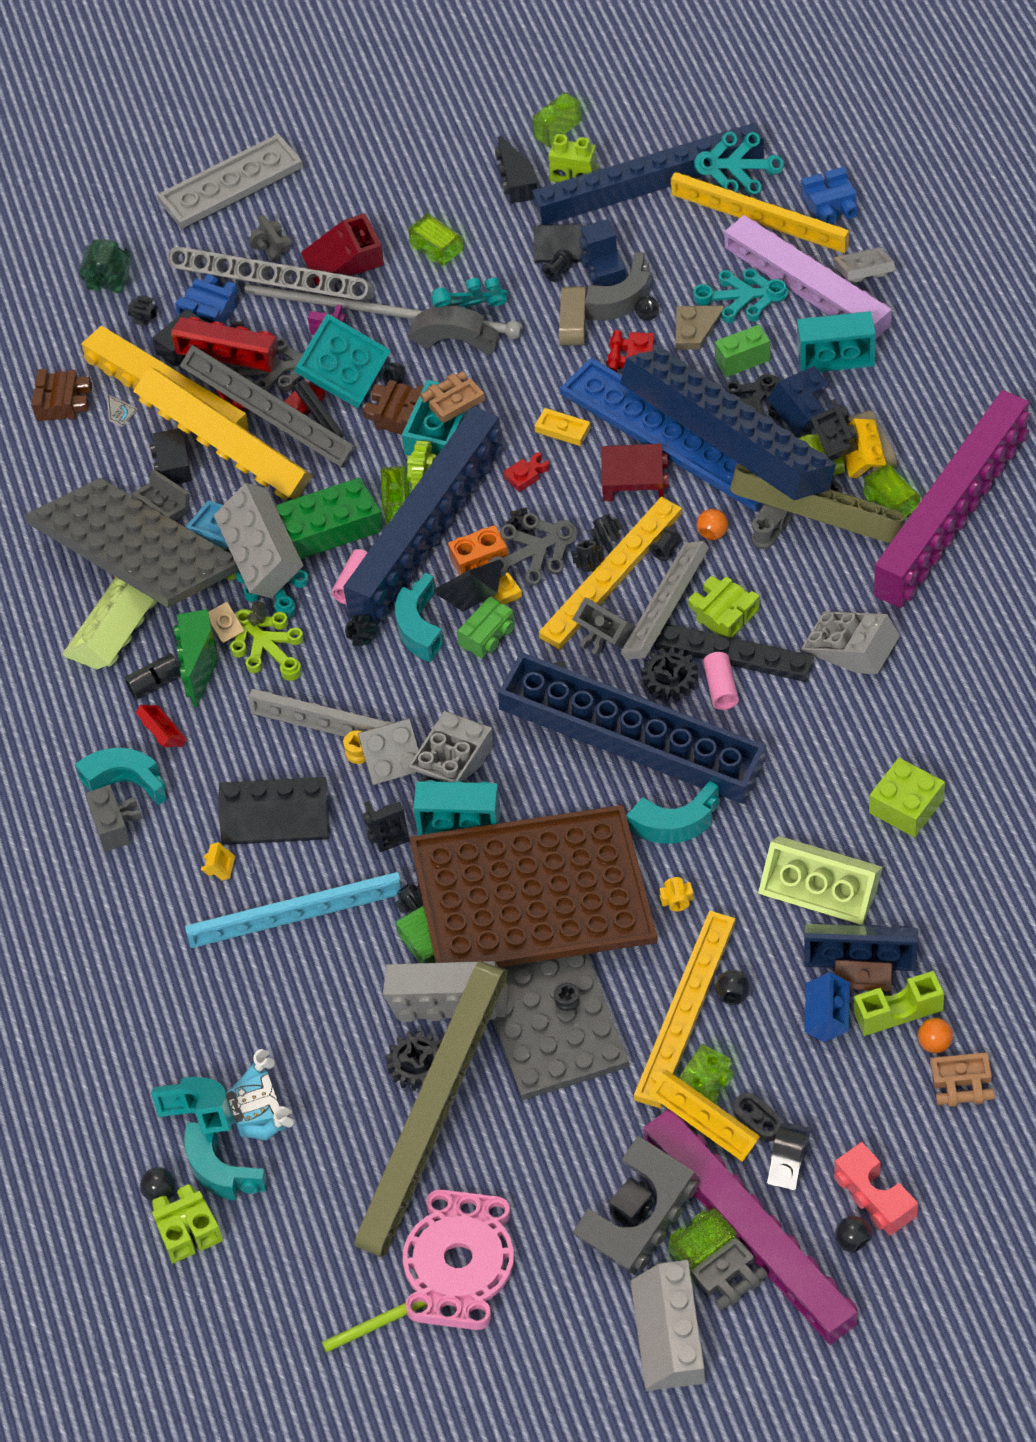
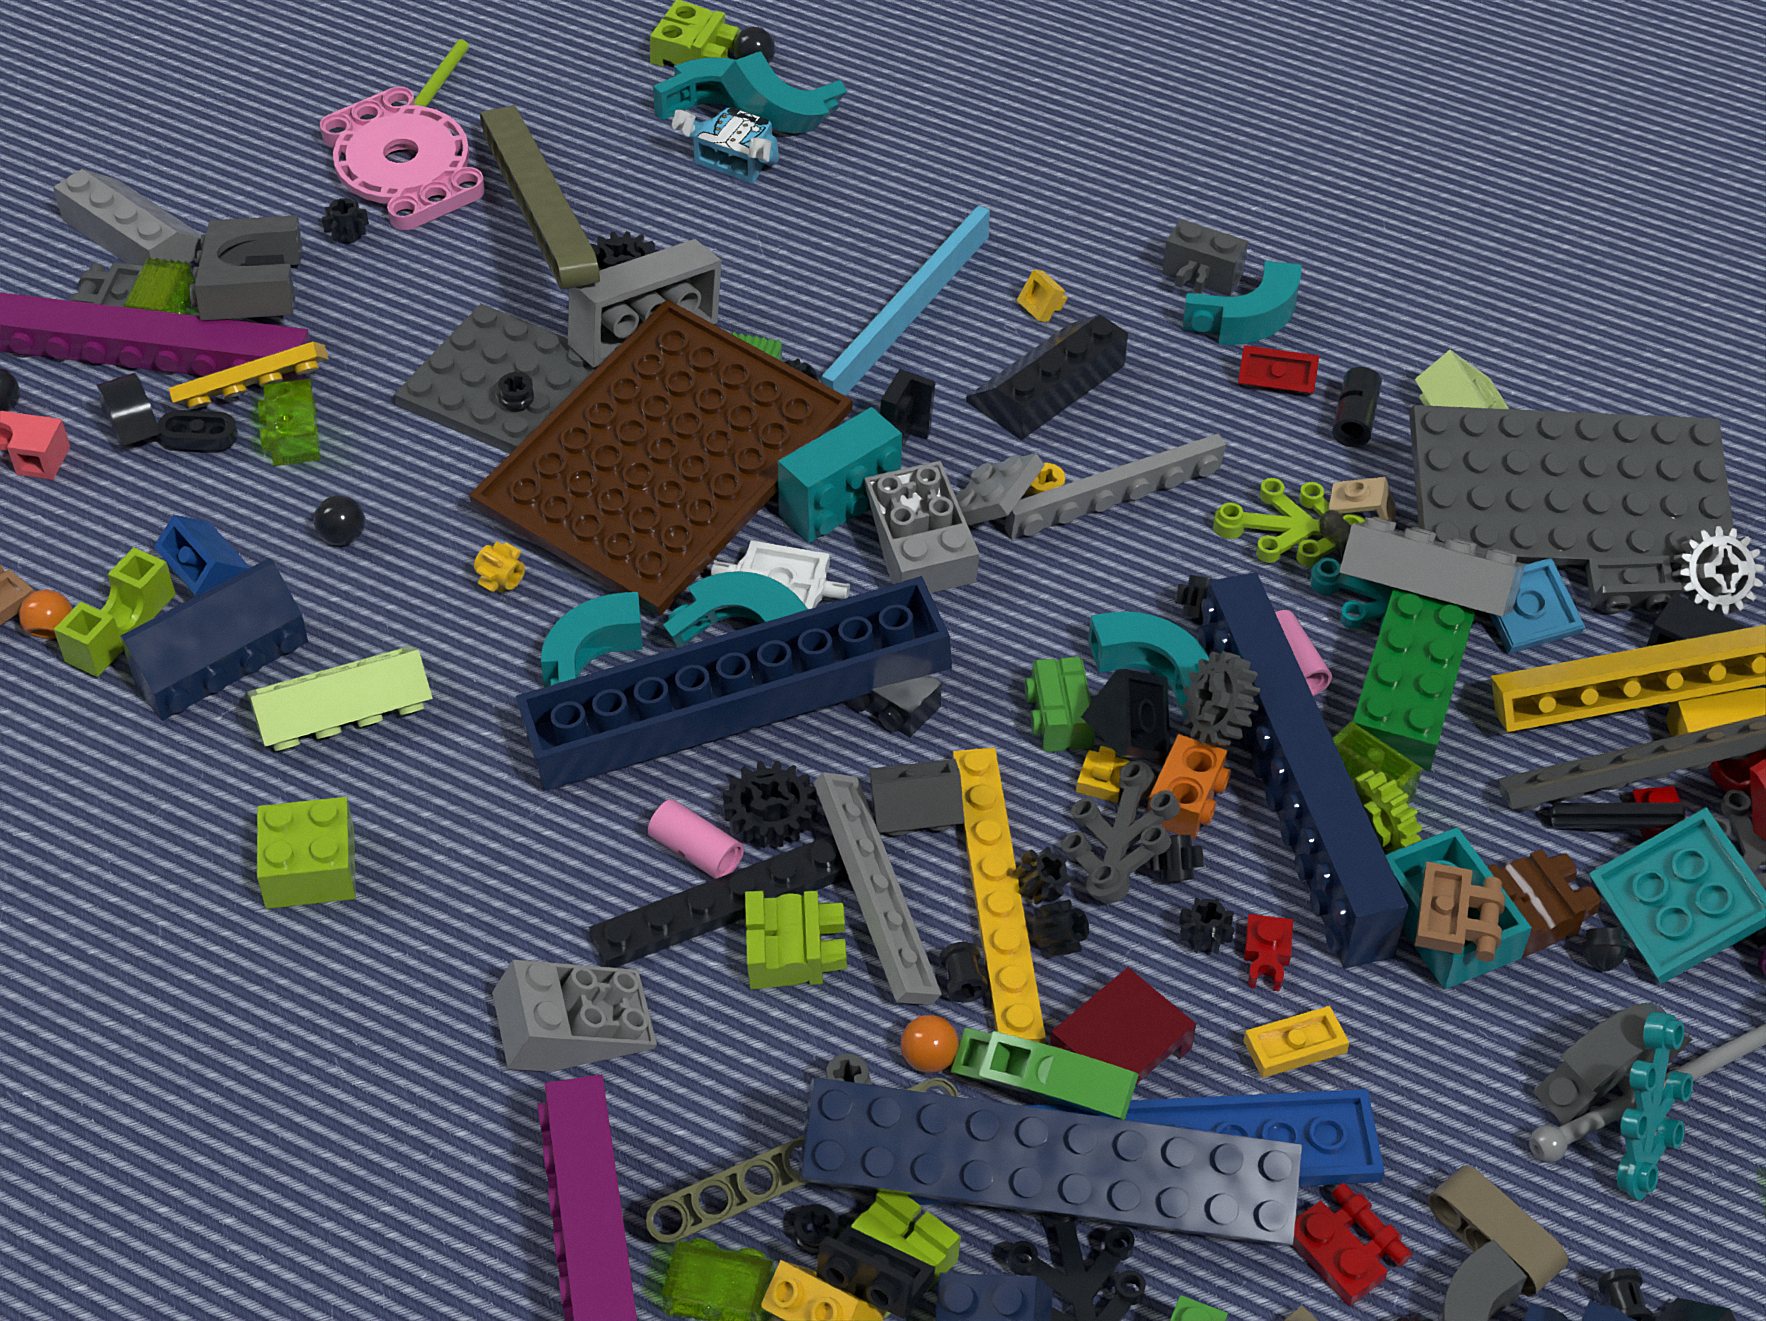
camera: 130 degrees right, 5 degrees down
(122, 470) = (1724, 552): none -> light grey gear
(195, 652) = (1333, 432): green slope -> none
(432, 546) = (1220, 699): none -> dark grey gear
(541, 1223) = (345, 220): none -> black gear
(543, 491) = (1206, 925): none -> black gear
(543, 787) = (795, 568): none -> white plate
(583, 777) = (730, 596): none -> teal arch
(686, 1003) = (380, 480): yellow plate -> none
(688, 465) = (1045, 1072): none -> bright green slope

